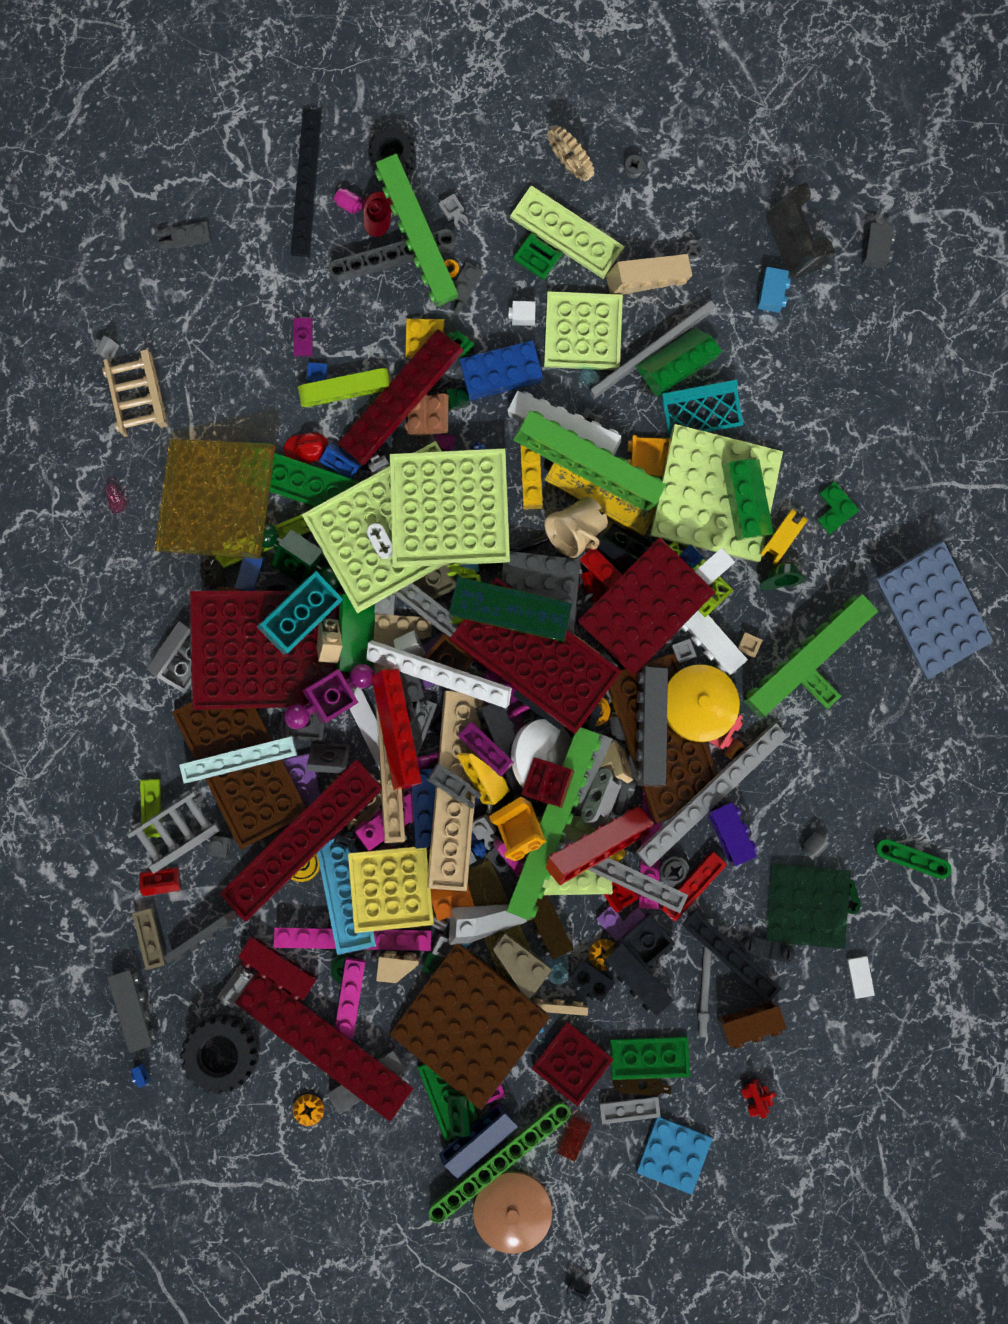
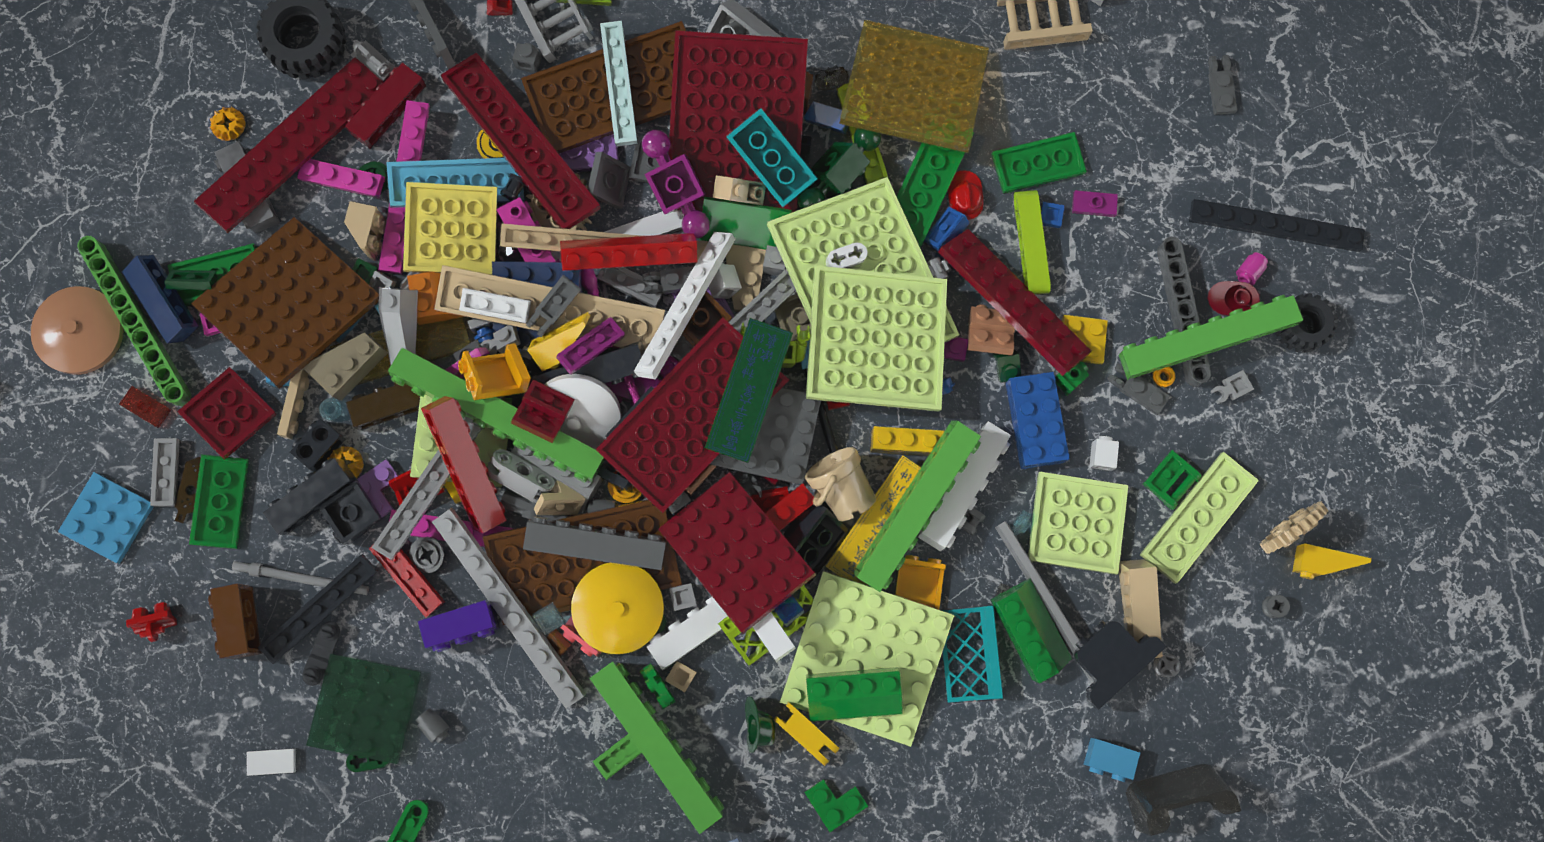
camera: 90 degrees right, 5 degrees down
(270, 387) = (1039, 162): none -> green tile
(458, 837) = (495, 305): none -> white tile
(593, 129) = (1318, 561): none -> yellow slope
(696, 291) = (1113, 659): none -> black brick
(716, 759) = (548, 618): none -> clear light blue plate
(761, 662) = (657, 685): none -> green plate

